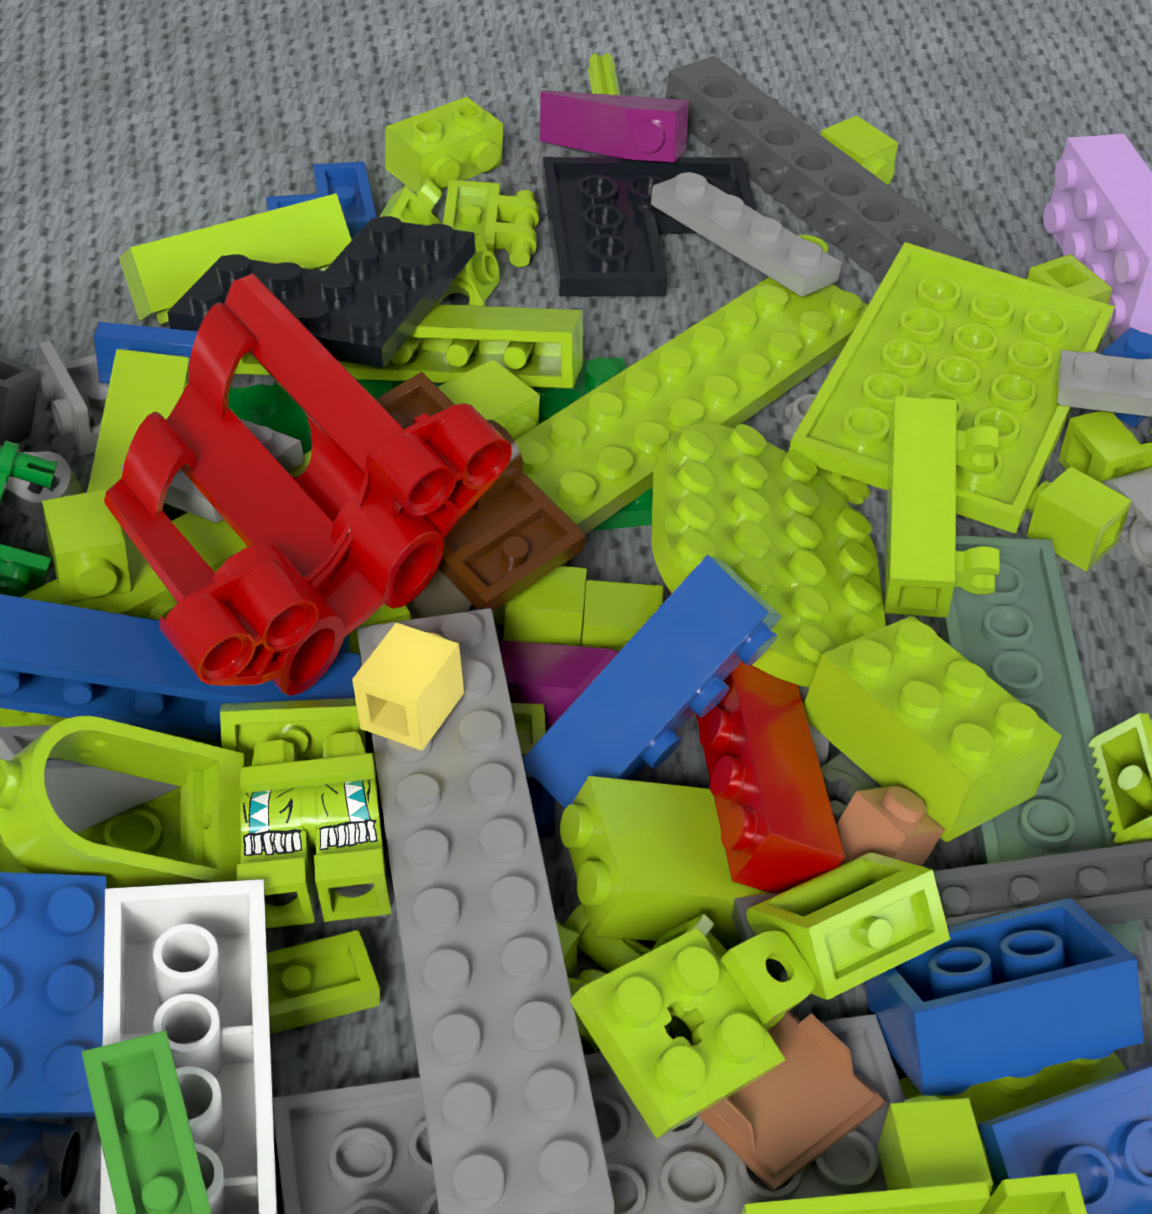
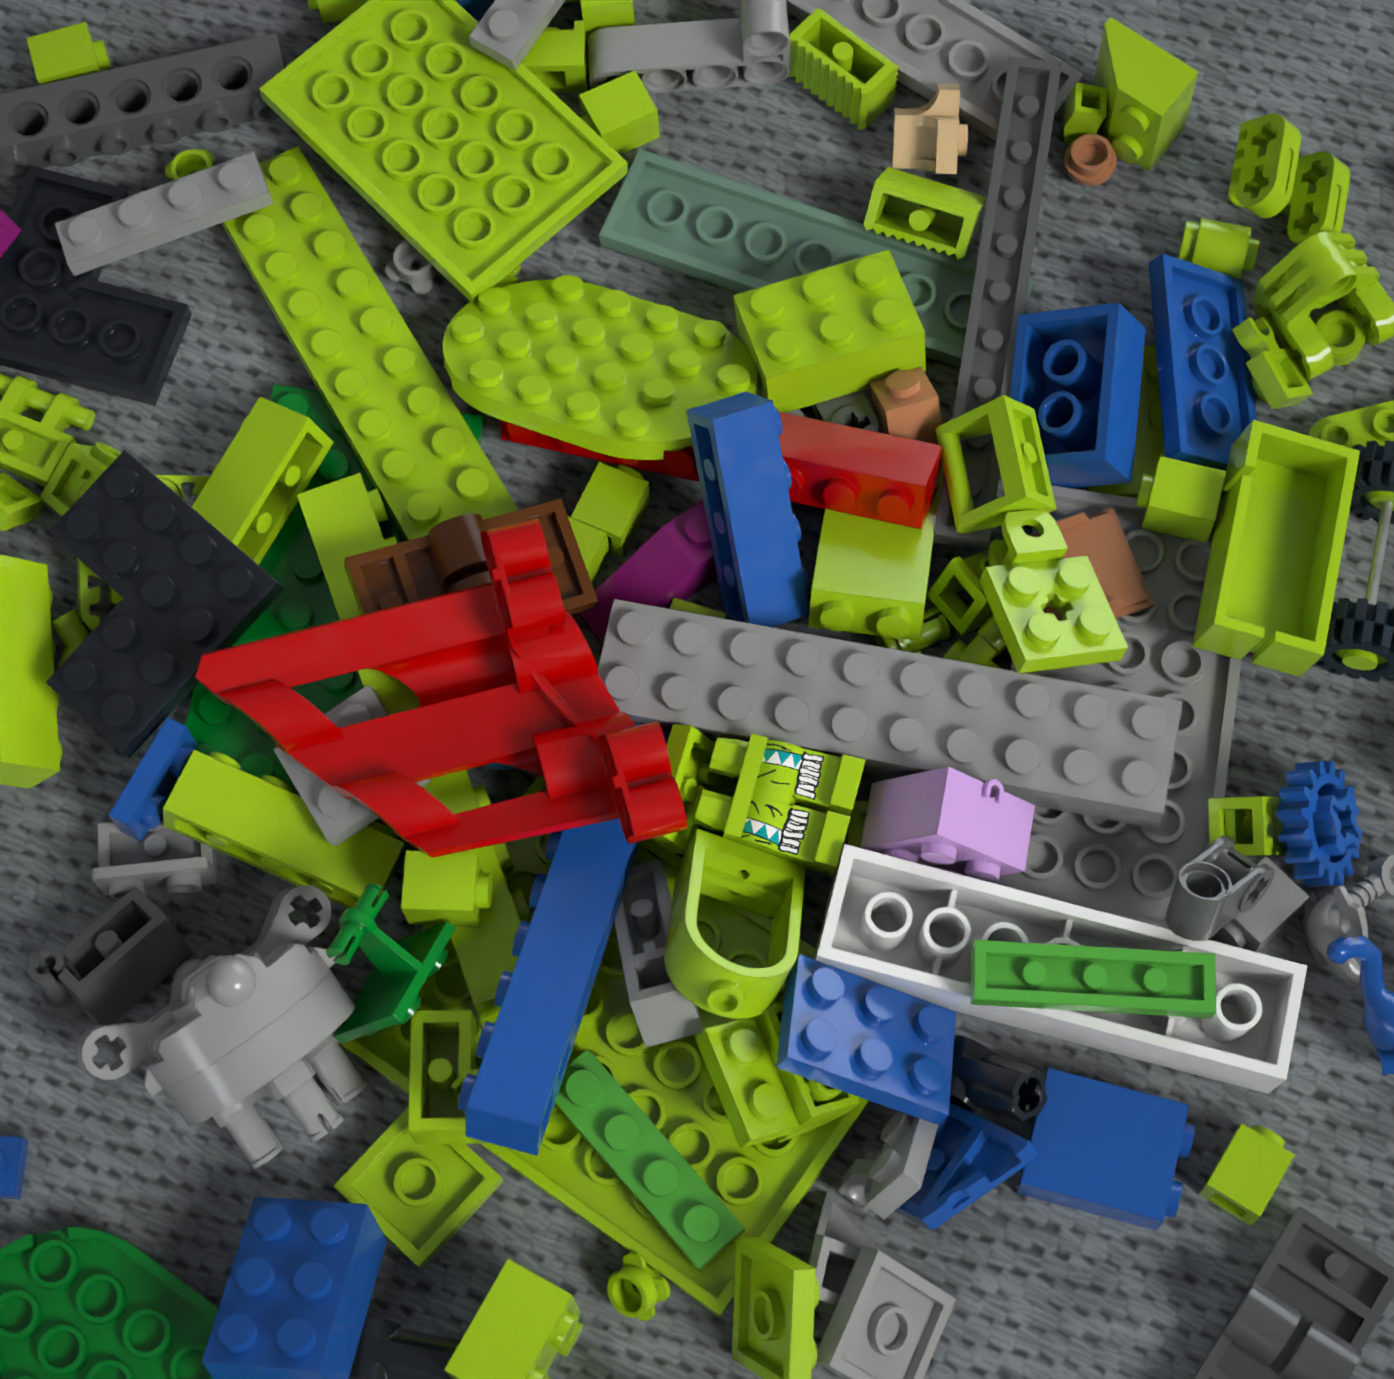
camera: 60 degrees left, 25 degrees up
(339, 998) = (949, 823): none -> lavender brick
(408, 686) = (705, 682): light yellow brick -> none
(922, 508) = (599, 228): lime brick -> none

